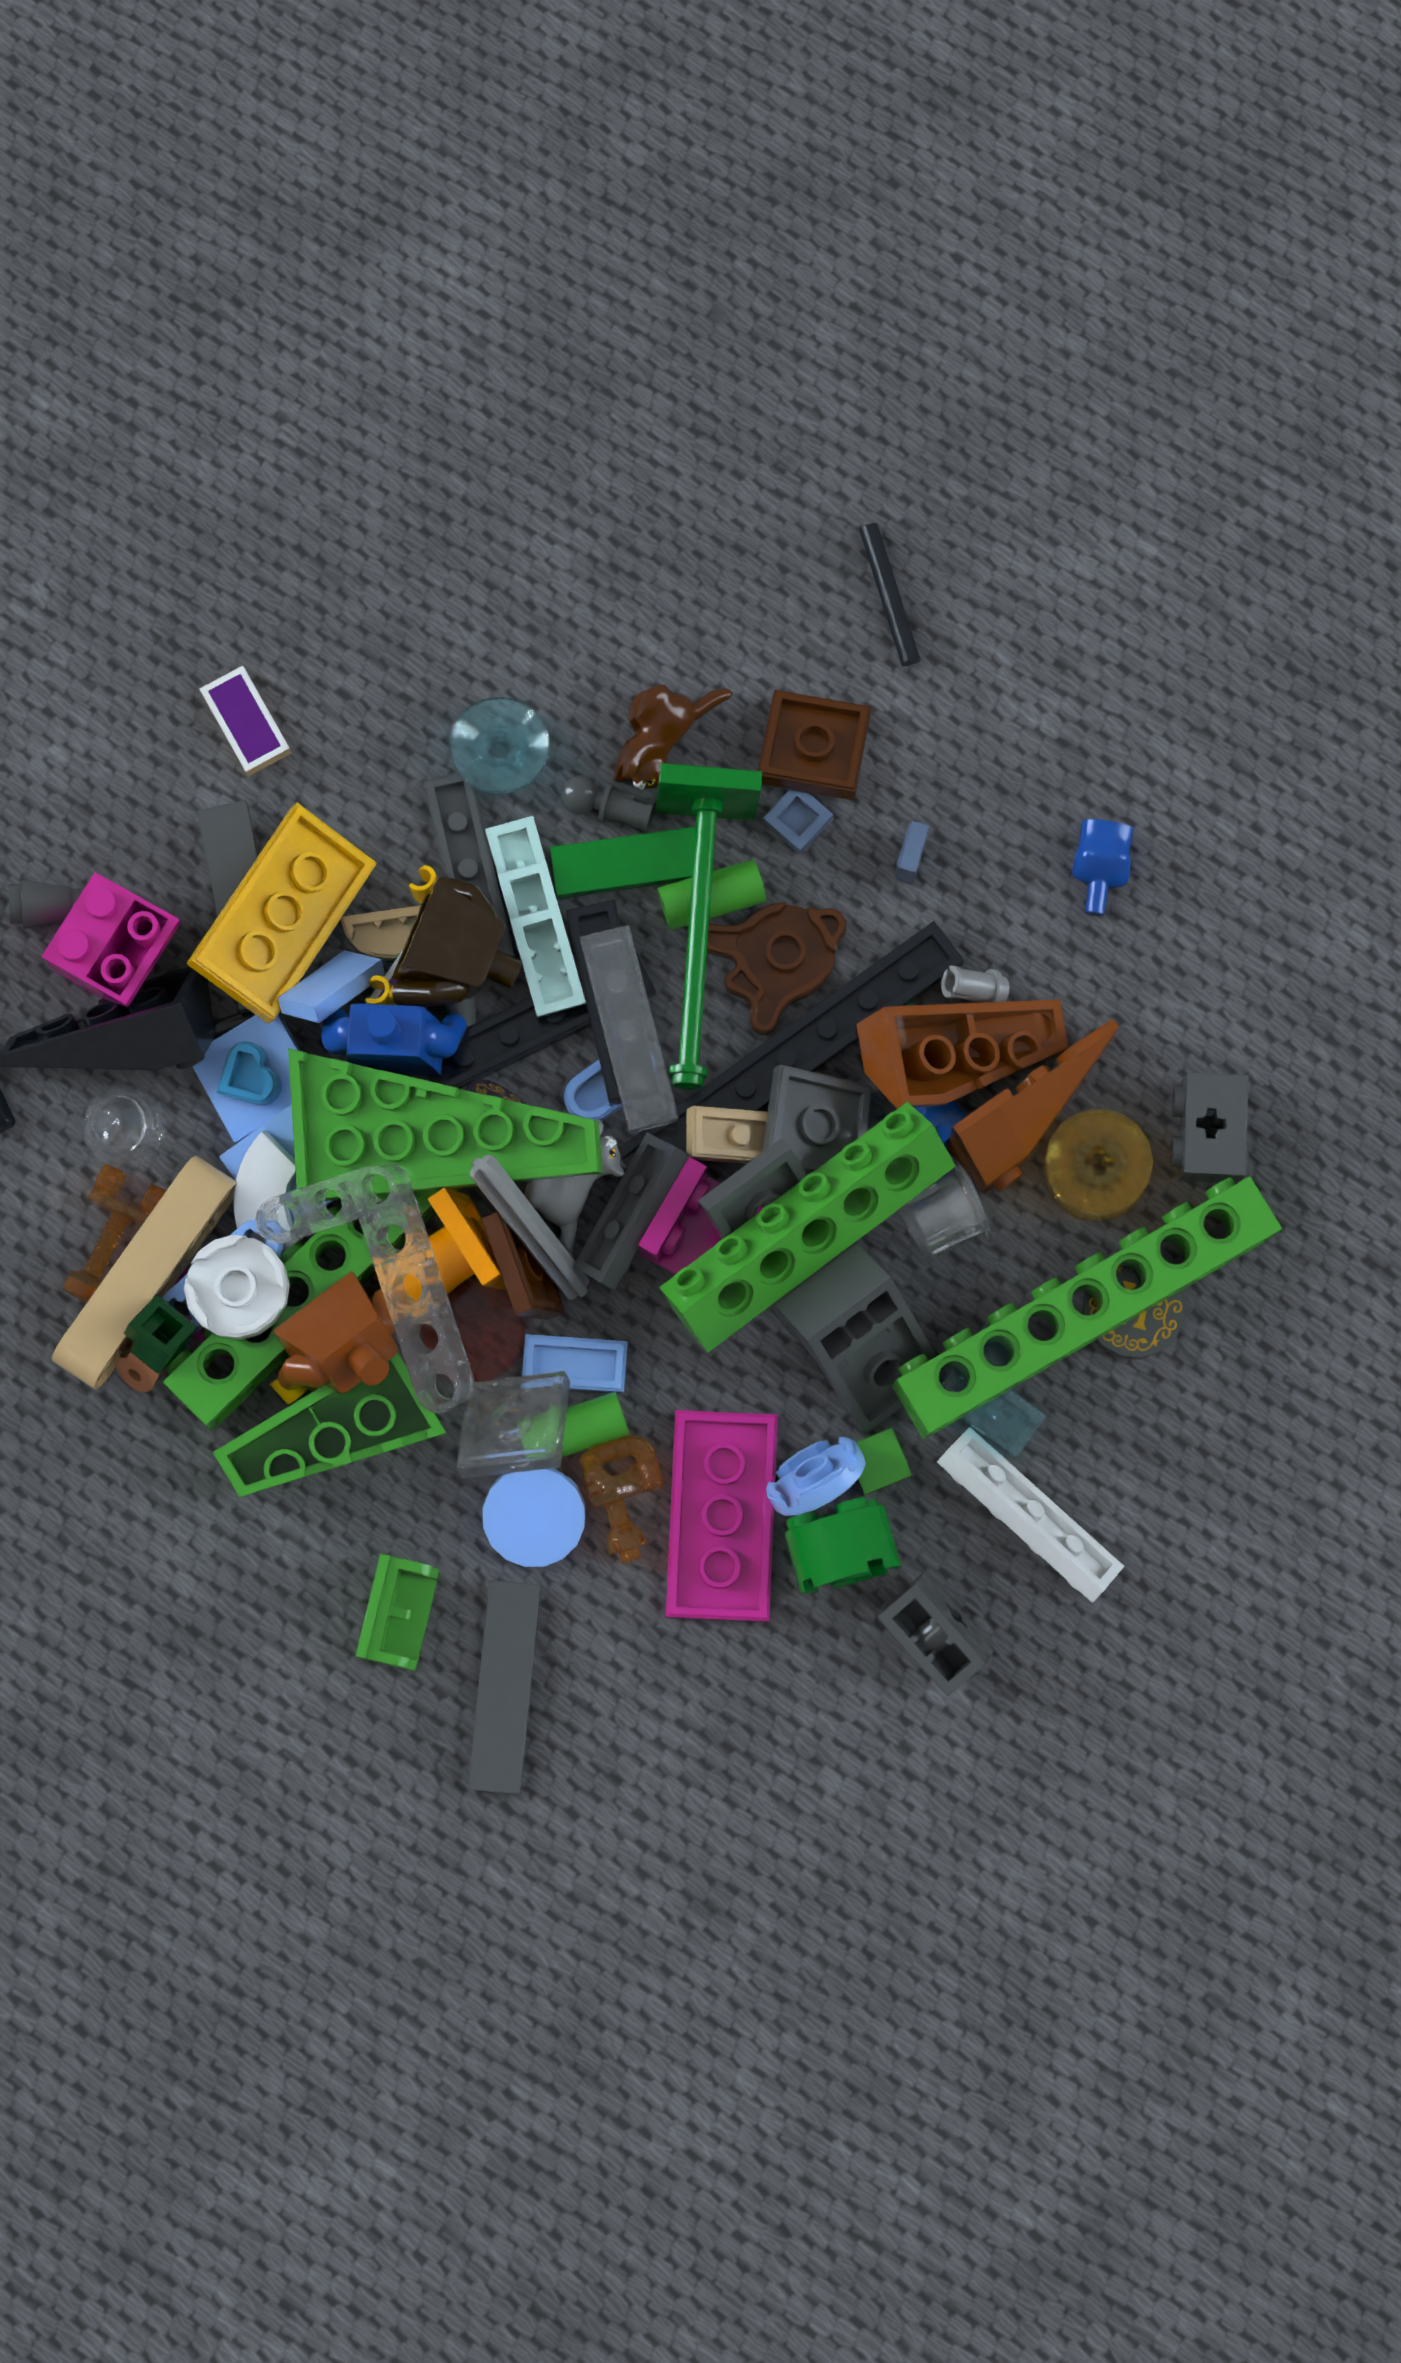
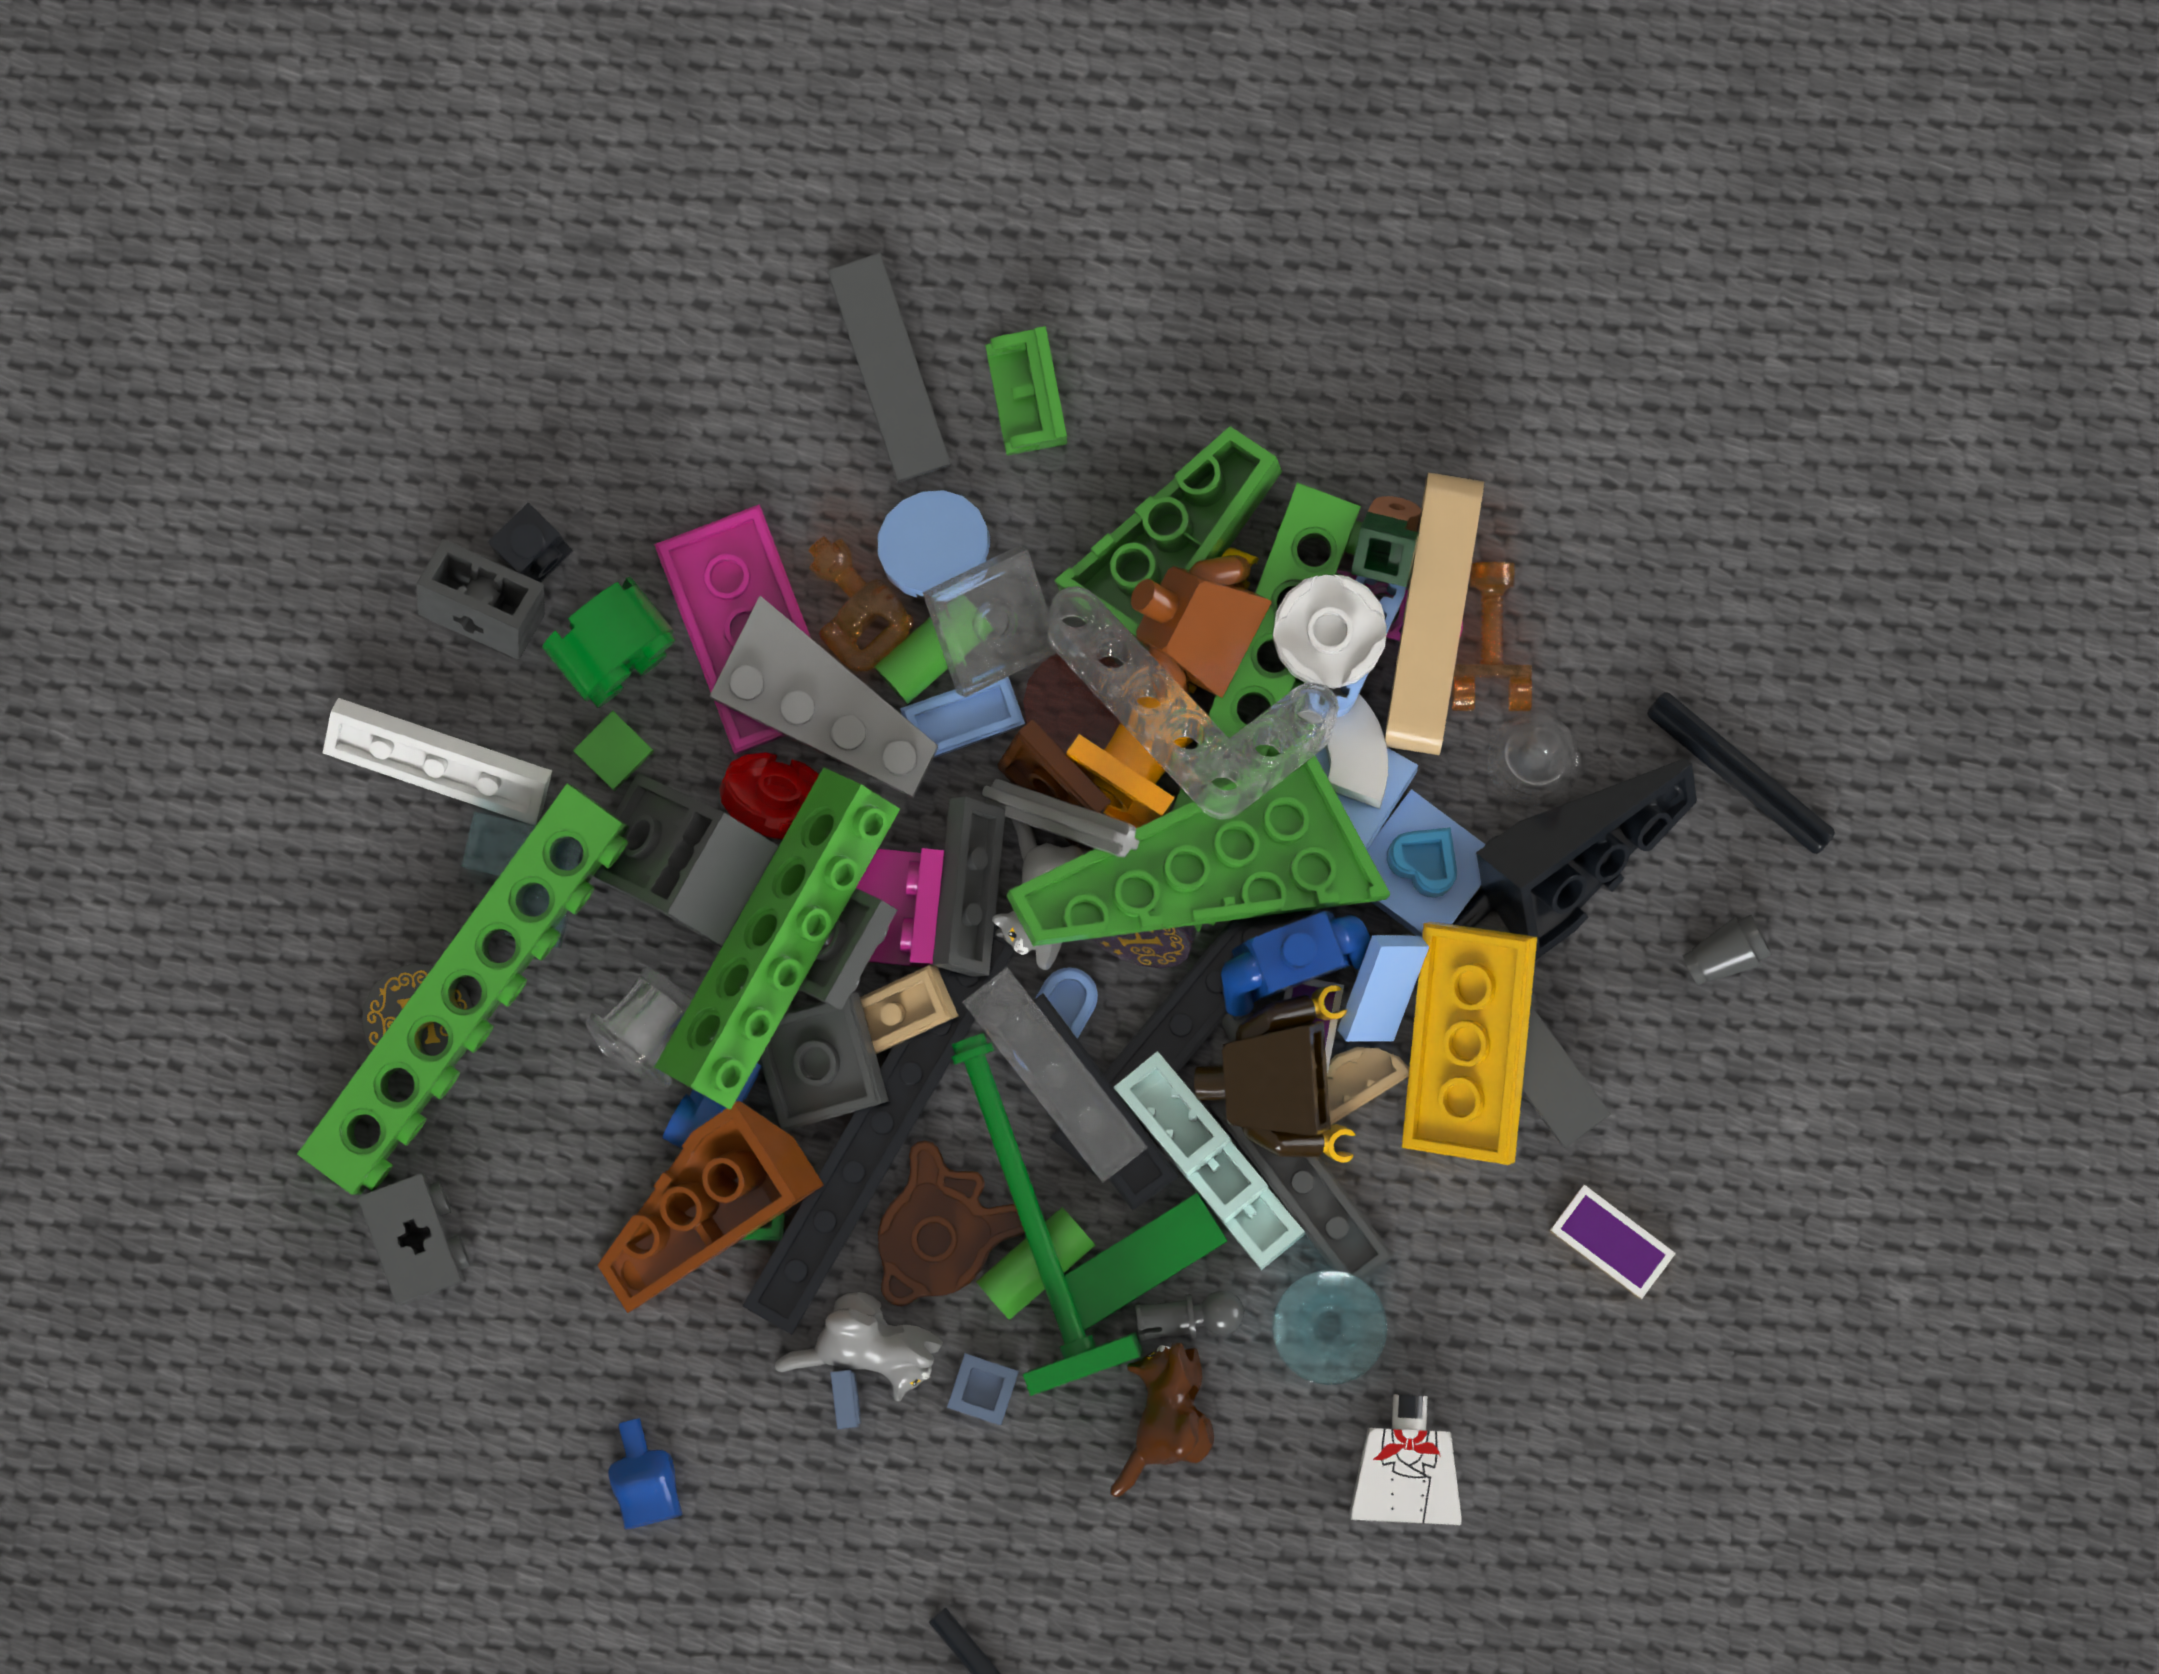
camera: 155 degrees right, 5 degrees up
(110, 941) = (1631, 936): dark pink slope -> none
(490, 610) = (1407, 1470): none -> white torso
(695, 1432) = (812, 698): none -> light grey wing
(762, 1361) = (766, 792): none -> red tile
(814, 744) = (999, 1475): reddish brown tile -> none
(815, 1476) = (665, 699): light blue tile -> none
(874, 1662) = (530, 544): none -> black brick
(879, 893) = (861, 1339): none -> light grey animal
(975, 985) = (706, 1288): light grey pin -> none
(1008, 1127) = (615, 1152): dark orange wedge -> none
(1119, 1145) = (528, 1118): clear yellow wheel -> none

